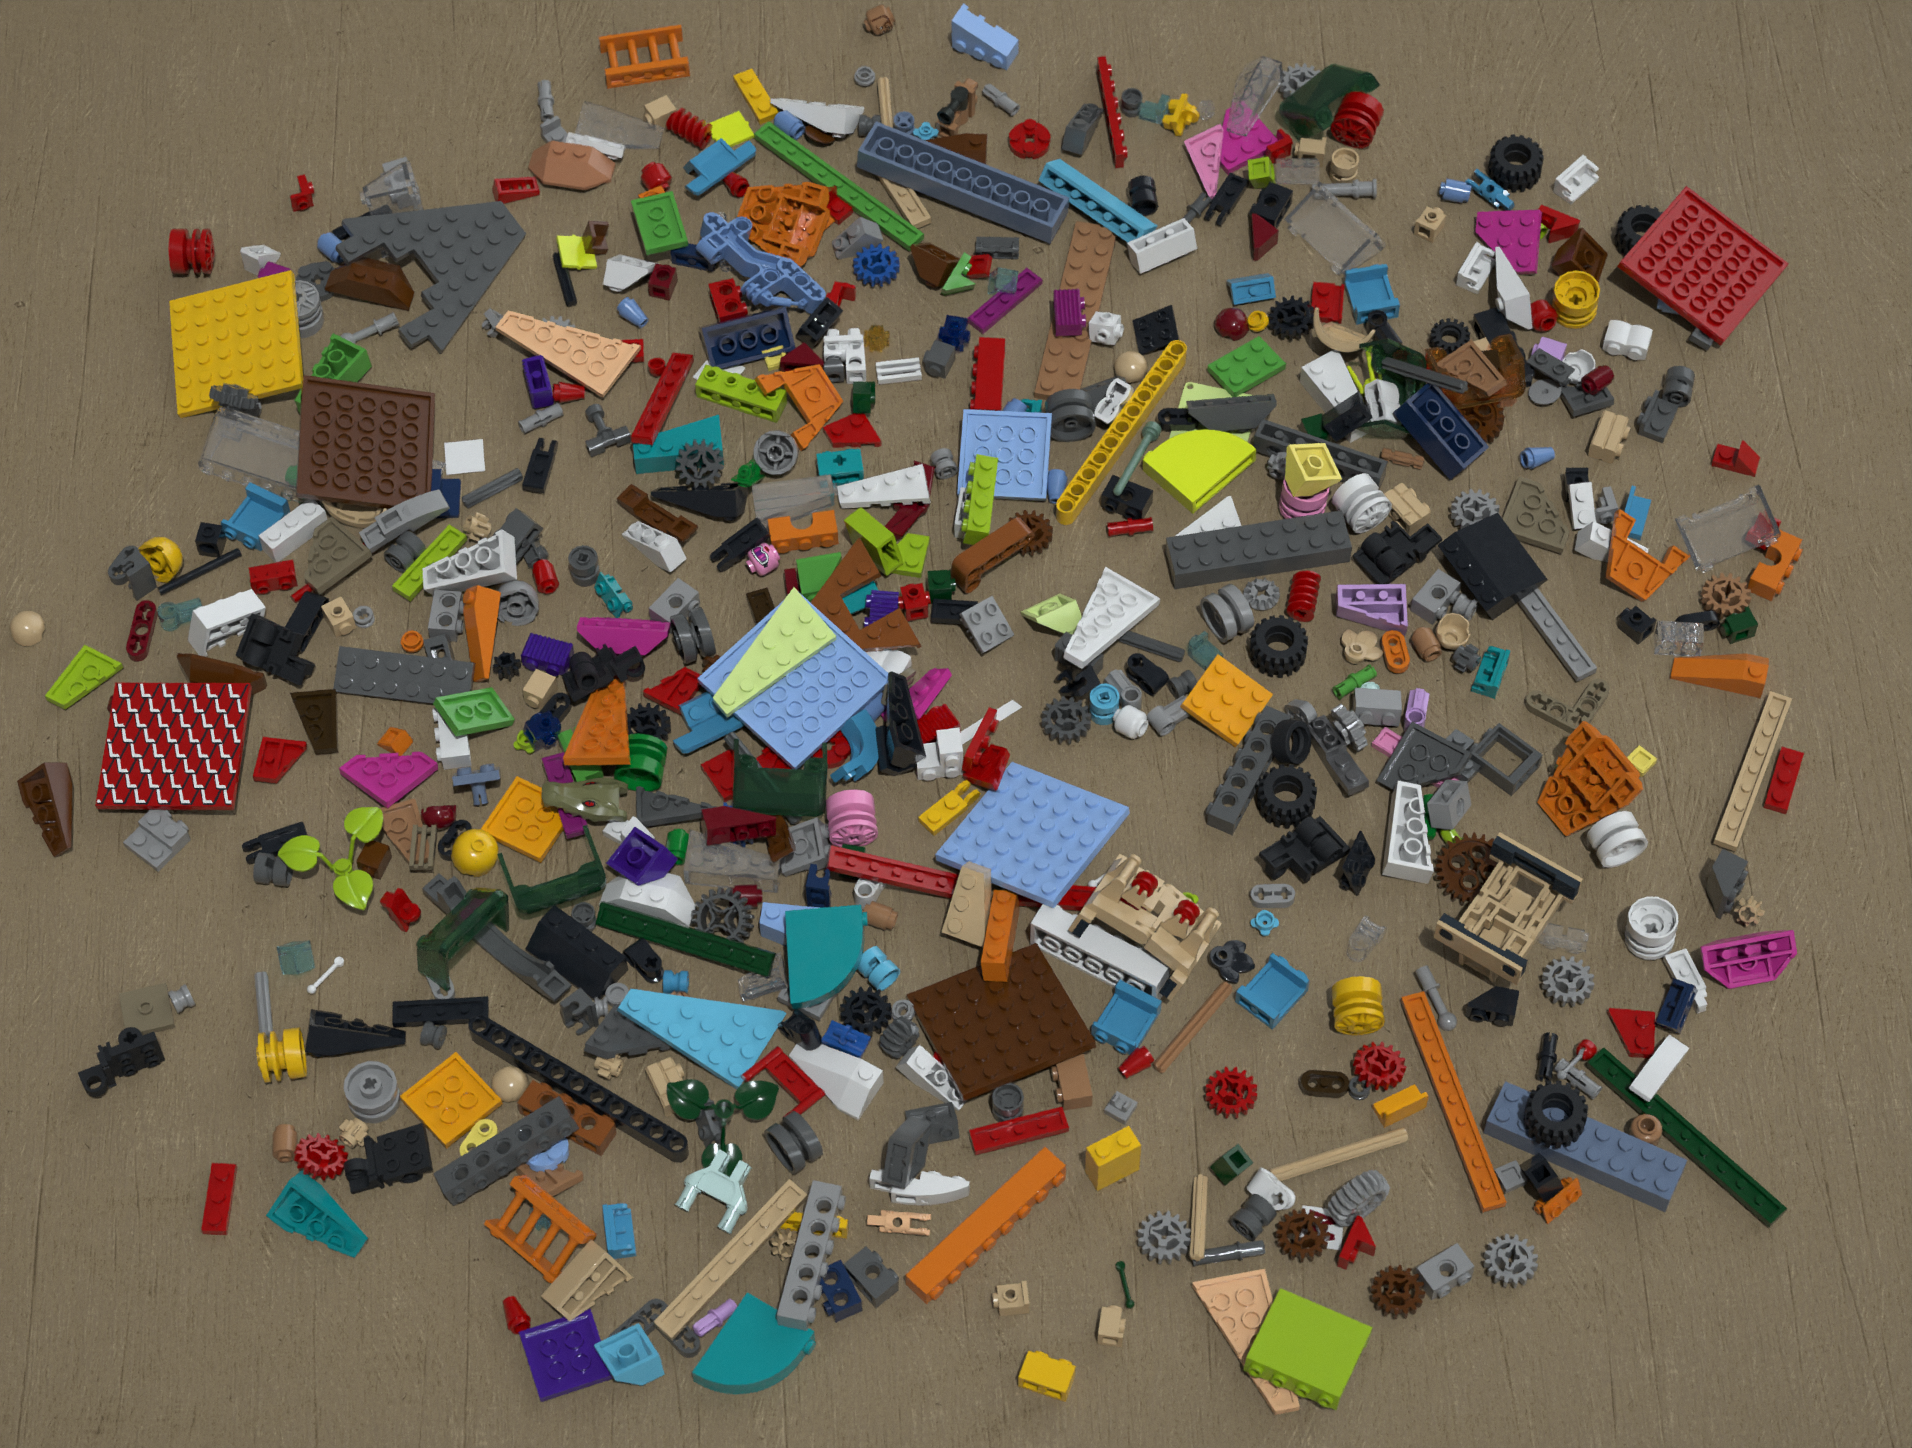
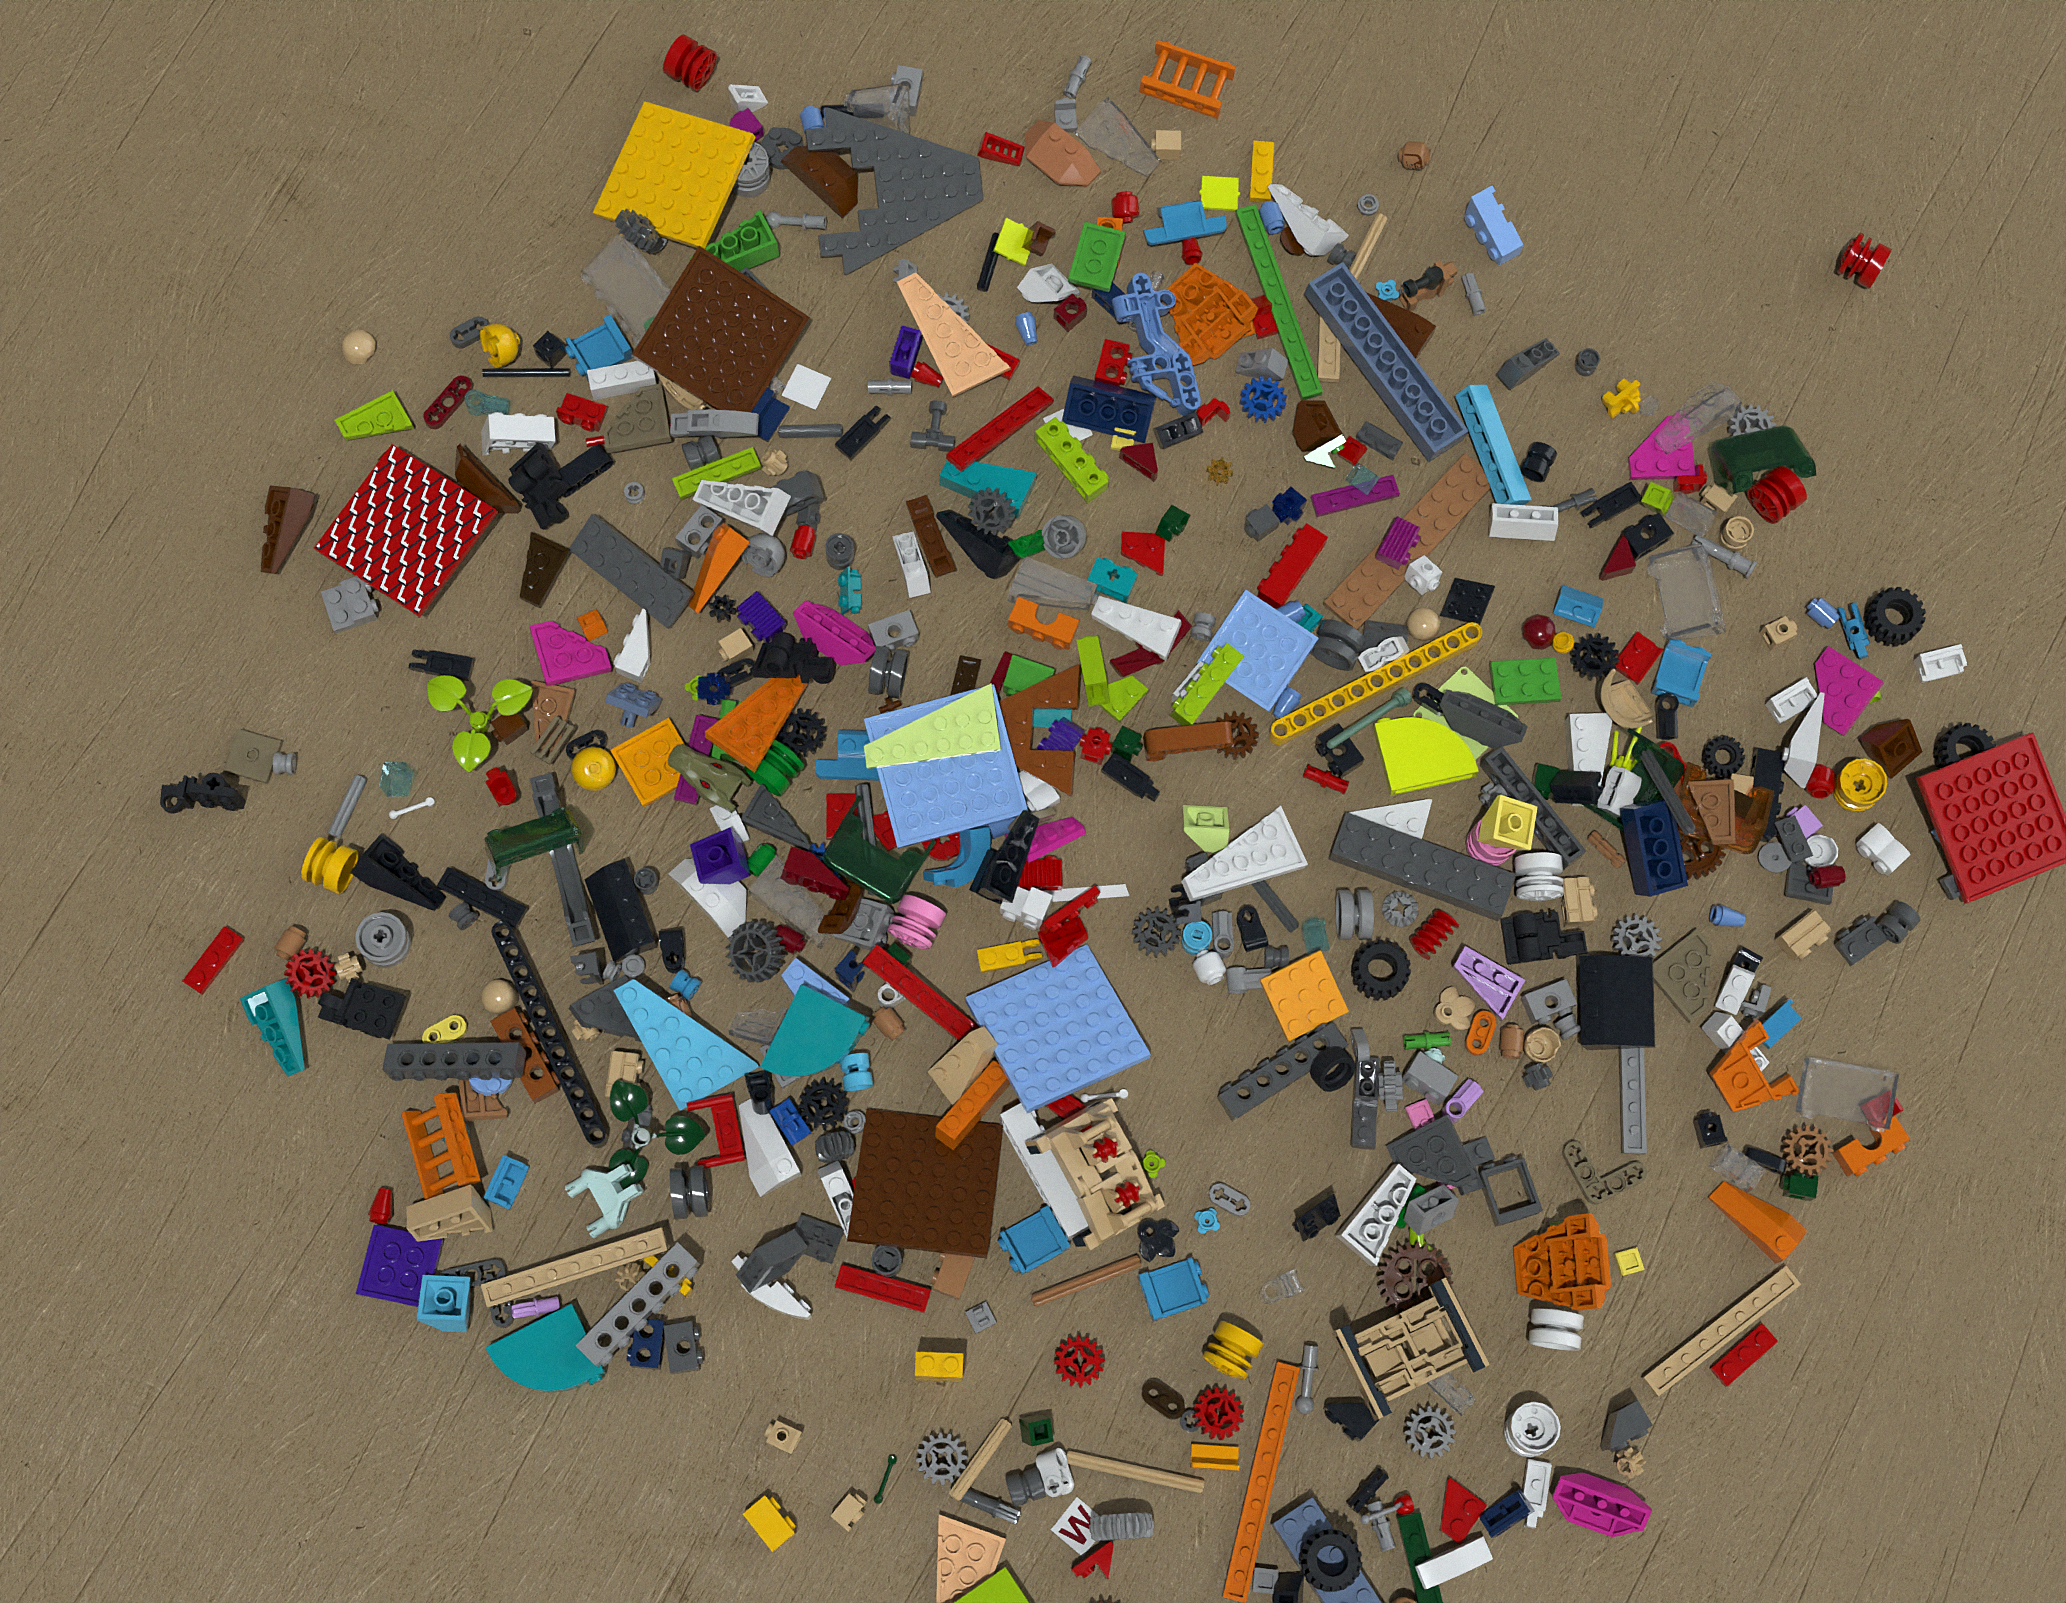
camera: 25 degrees right, 15 degrees up
(139, 576) = (471, 354): dark grey hinge -> none
(269, 869) = (416, 686): dark grey wheel -> none
(276, 758) = (486, 585): red wing -> none
(304, 199) = (818, 61): red bracket -> none
(338, 617) = (611, 483): tan brick -> none
(412, 641) = (659, 539): orange plate -> none
(440, 816) = (584, 717): dark red hair -> none
(451, 1100) = (443, 983): light orange plate -> none
(473, 711) = (666, 638): bright green plate -> none
(586, 881) = (608, 843): clear green windscreen -> none
(611, 149) = (1104, 156): white hinge -> none
(656, 366) = (1015, 392): red hinge -> none
(675, 689) = (847, 712): red wing -> none
(685, 938) = (714, 952): dark green tile -> none
(690, 128) = (1183, 173): red piece -> none
(739, 544) = (983, 606): black hinge -> none
(763, 559) = (993, 631): bright pink head -> none
(810, 392) = (1129, 497): orange wing -> none
(845, 349) = (1186, 468): white hips -> none
(887, 1222) = (726, 1304): light nougat hinge -> none
(898, 367) = (1223, 505): white tile -> none
(904, 122) = (1374, 267): sand blue wheel -> none
(986, 624) = (1143, 804): light grey hinge -> none
(986, 1225) = (803, 1358): orange brick -> none
(1026, 130) = (1474, 336): red plate -> none
(1110, 105) = (1561, 369): red plate -> none
(1136, 1062) = (1018, 1286): red cone -> none
(1154, 112) = (1603, 381): clear light blue panel -> none
(1206, 156) = (1620, 451): bright pink wing -> none
(1290, 780) = (1306, 1099): black tyre -> none
(1305, 850) = (1283, 1177): black plate -> none
(1311, 1240) = (1070, 1518): reddish brown gear -> none
(1491, 672) = (1551, 1101): teal hinge -> none
(1560, 224) = (1897, 701): red slope -> none
(1739, 460) = (1908, 1025): red slope -> none

